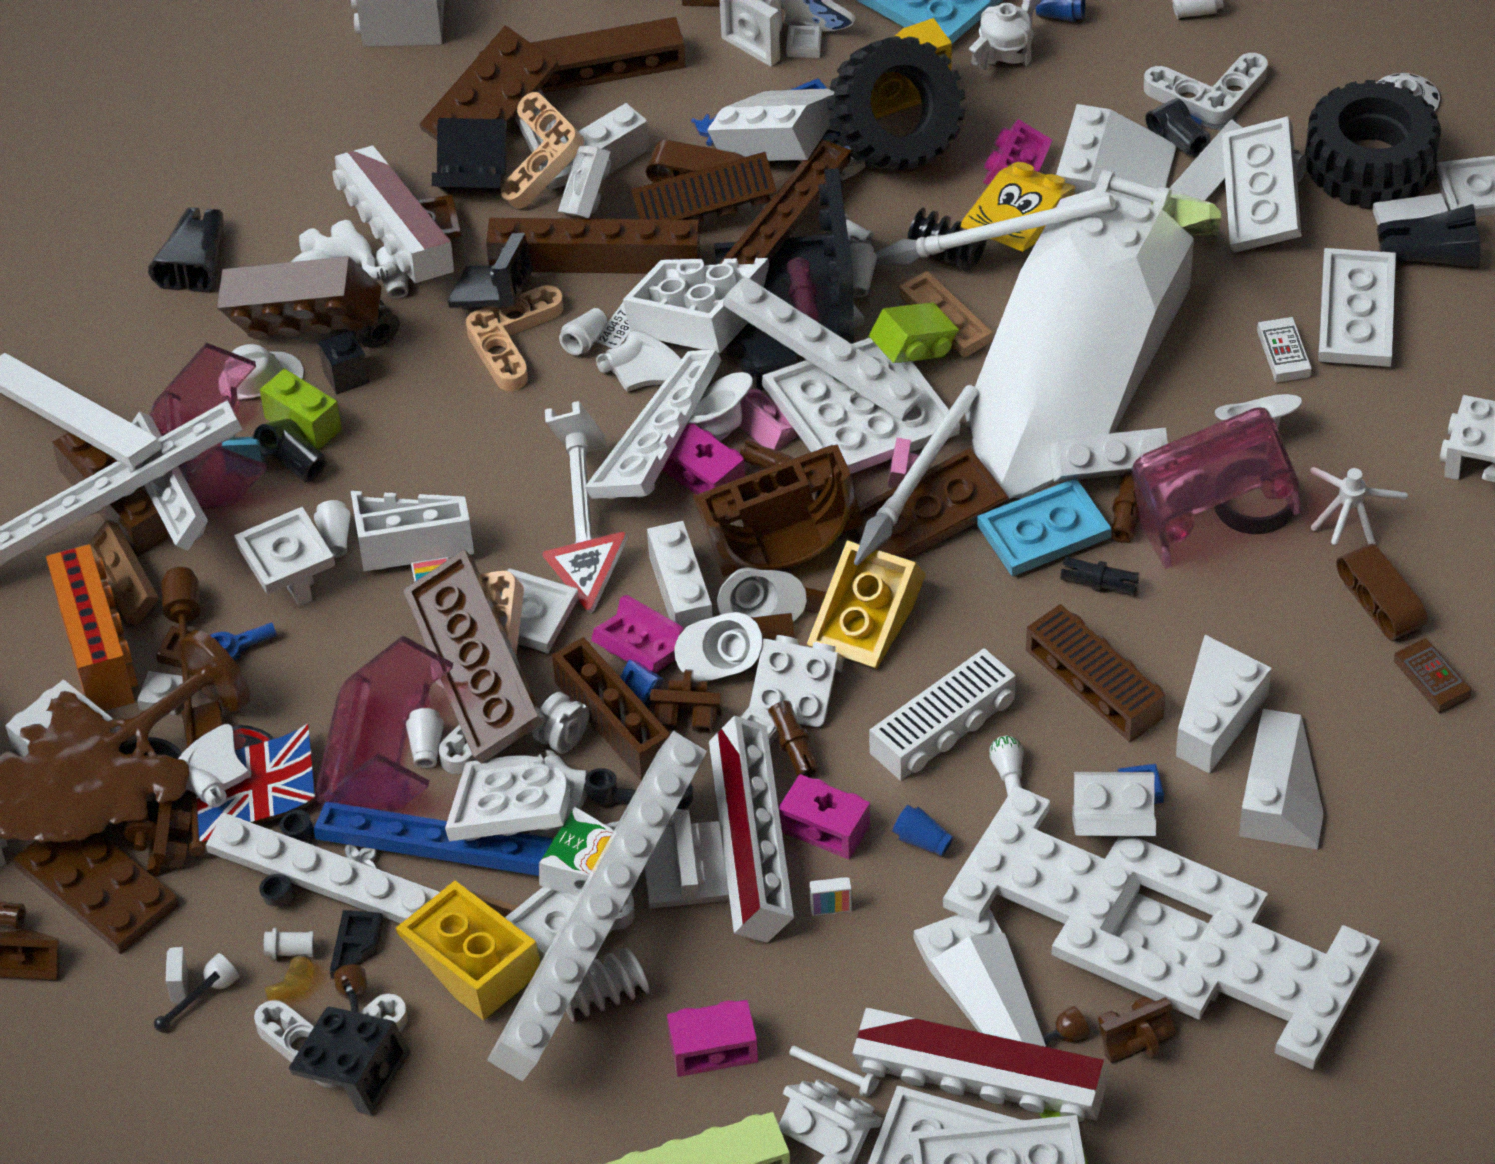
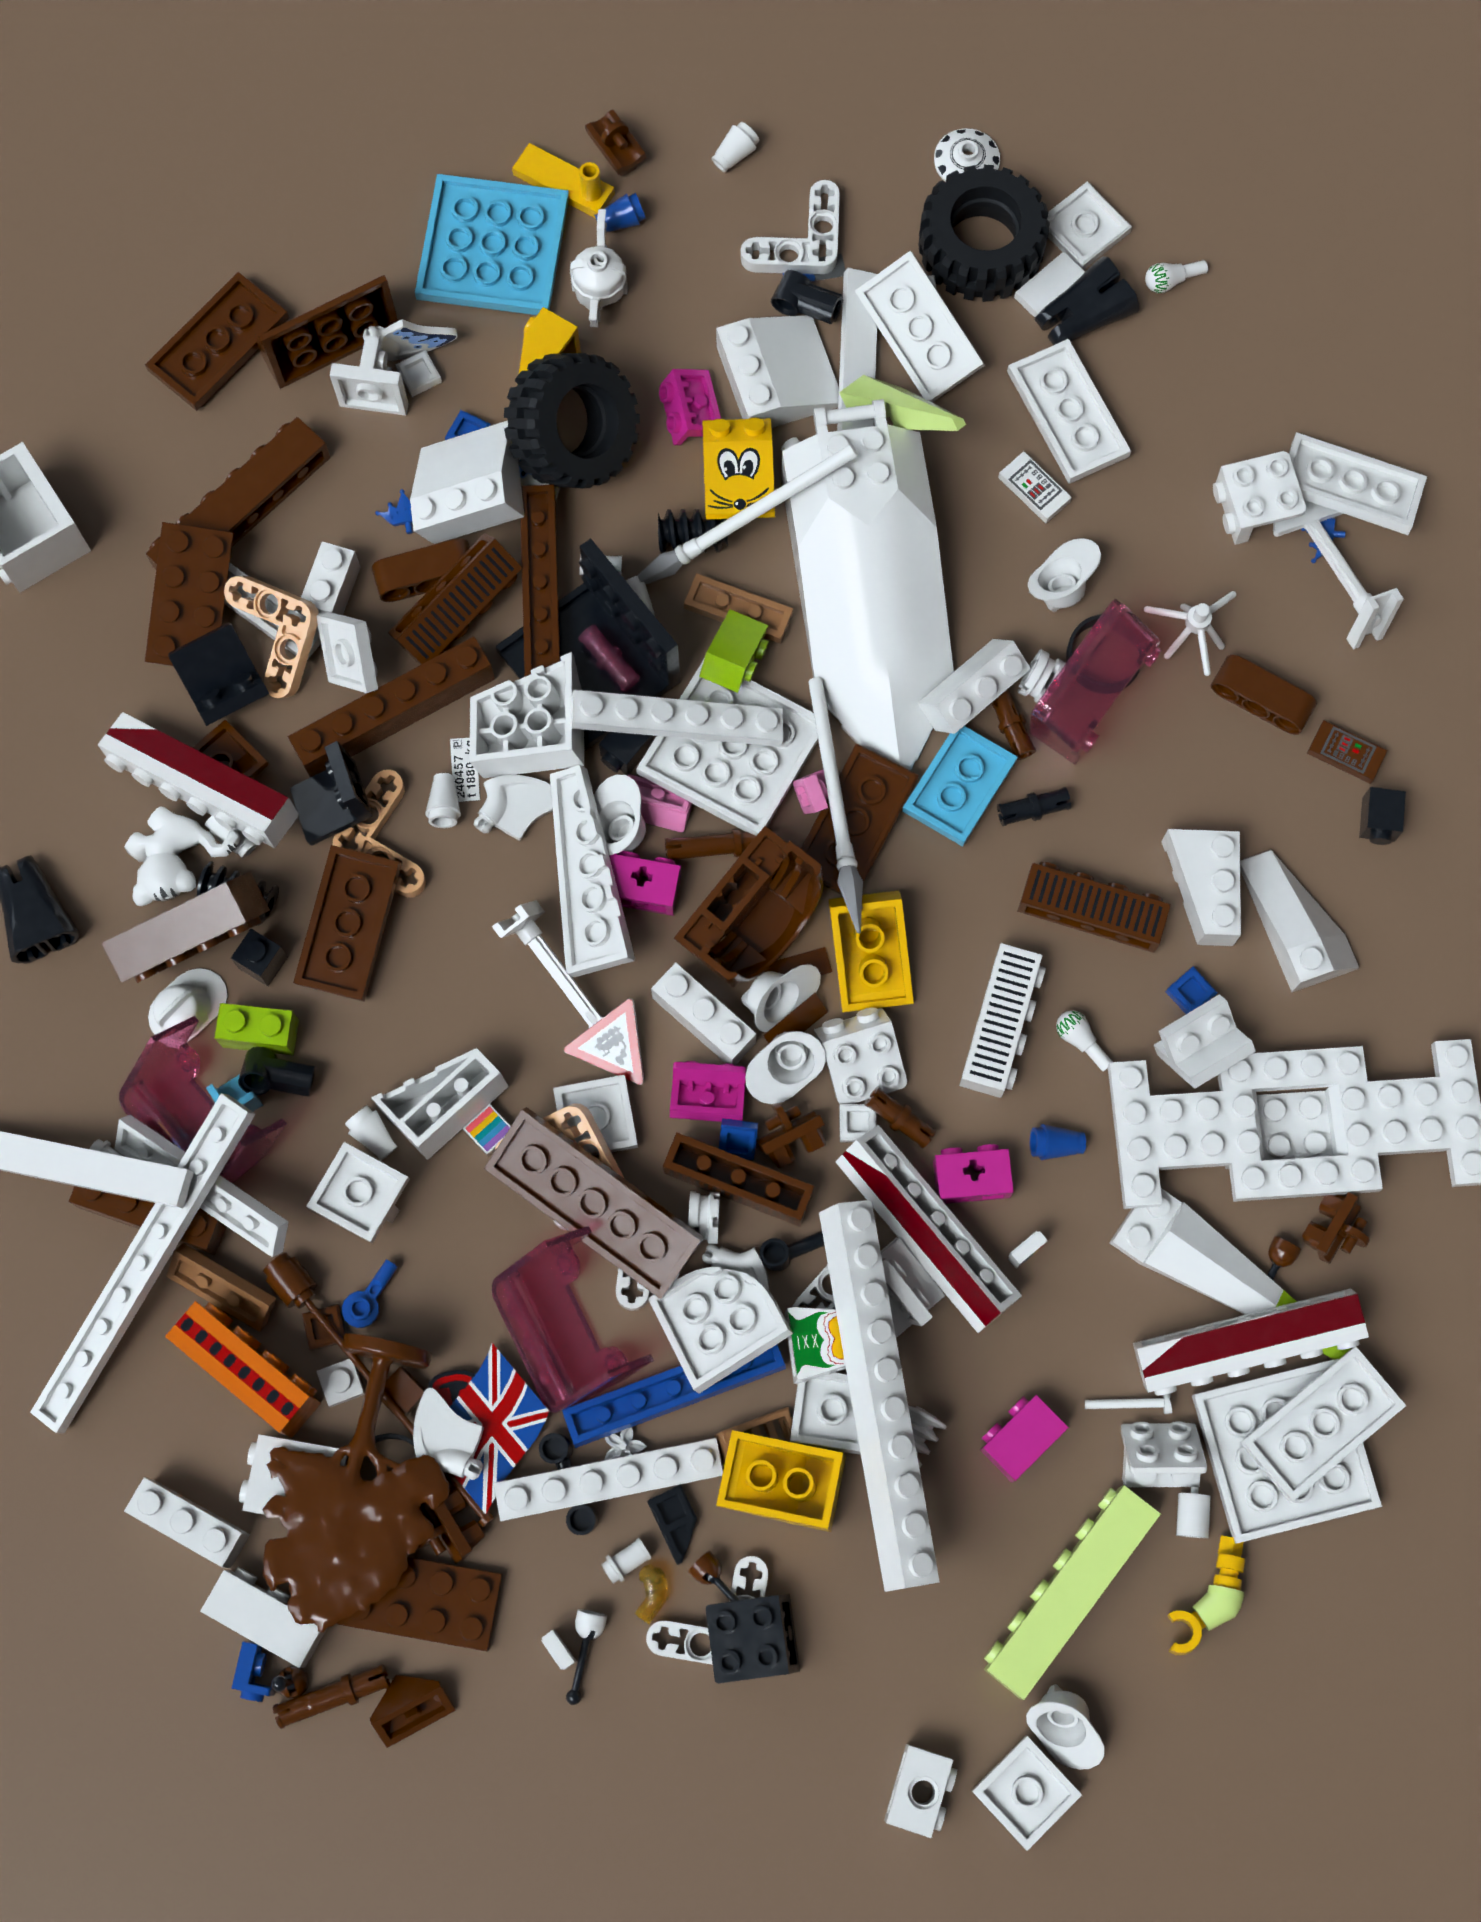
camera: 35 degrees left, 25 degrees up
(425, 735) = (597, 1295): white cone -> none
(434, 372) = (347, 923): none -> reddish brown plate
(1427, 733) = (1382, 815): none -> black brick

